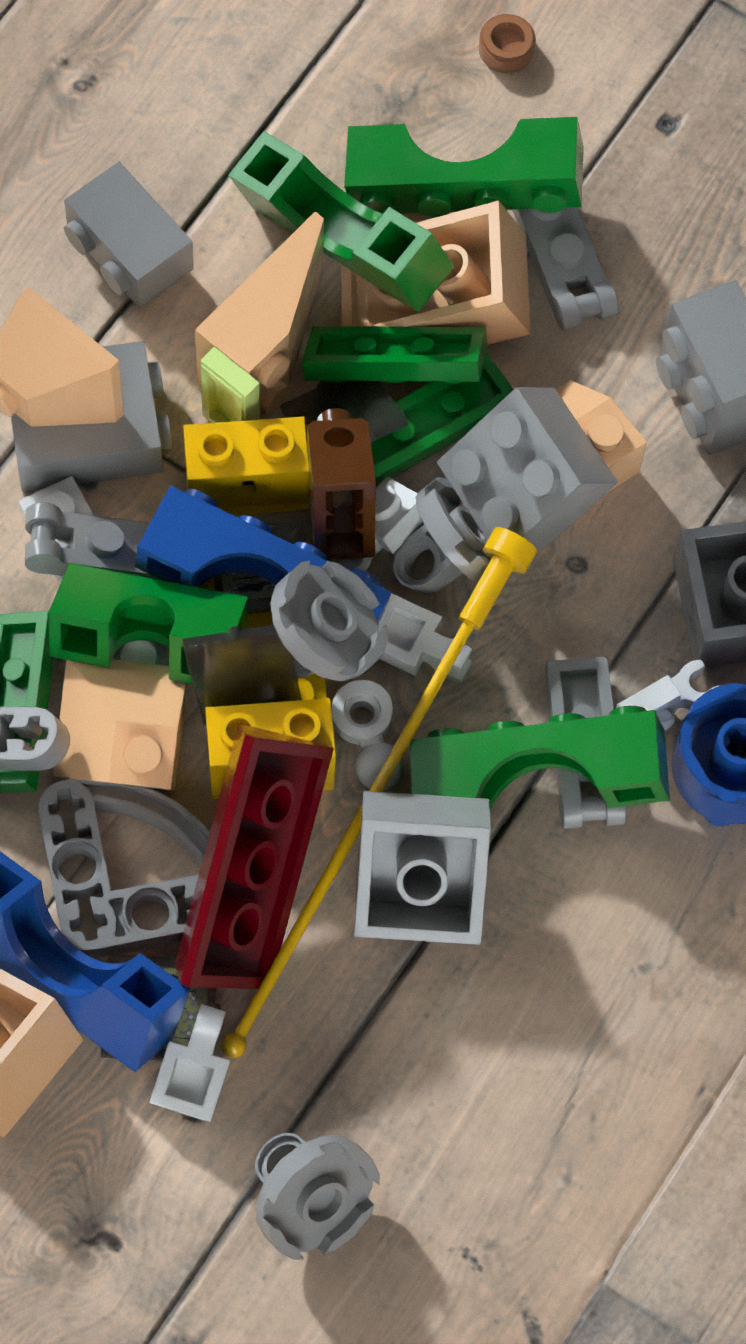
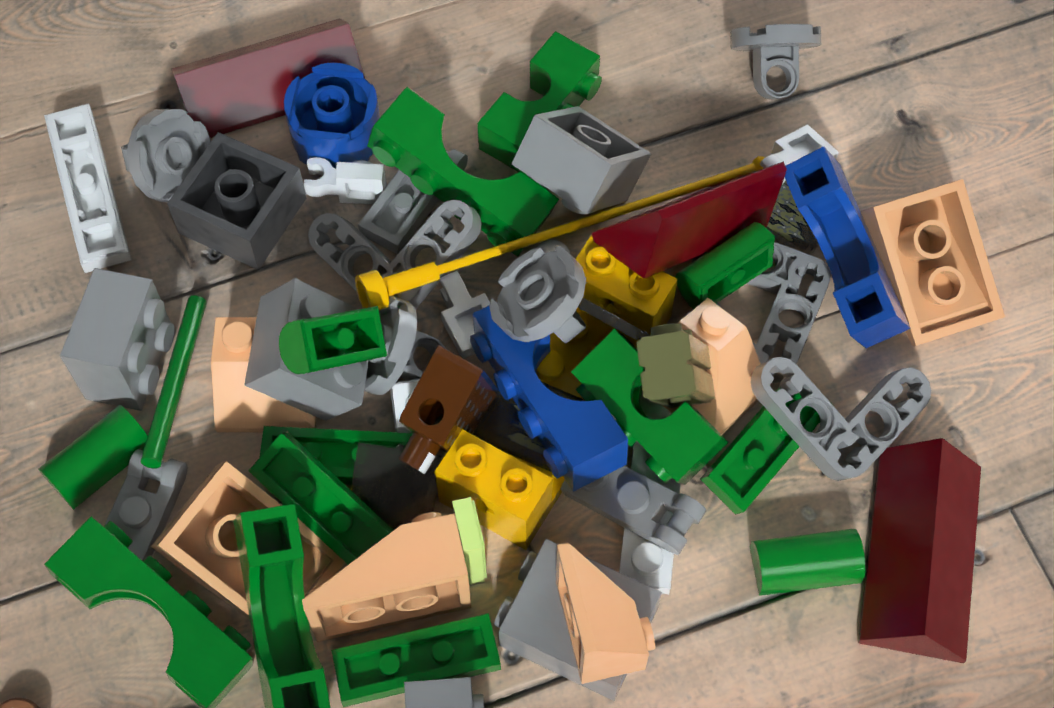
camera: 140 degrees left, 5 degrees down
(136, 642) = (675, 367): none -> olive brick
(172, 320) = (431, 653): none -> green plate
(178, 851) = (727, 266): none -> green brick
(486, 445) = (332, 340): none -> green brick
(519, 631) = (359, 244): none -> light grey beam
(532, 996) = (559, 72): none -> green arch
(645, 388) = (173, 383): none -> green bar
(654, 276) = (94, 456): none -> green brick

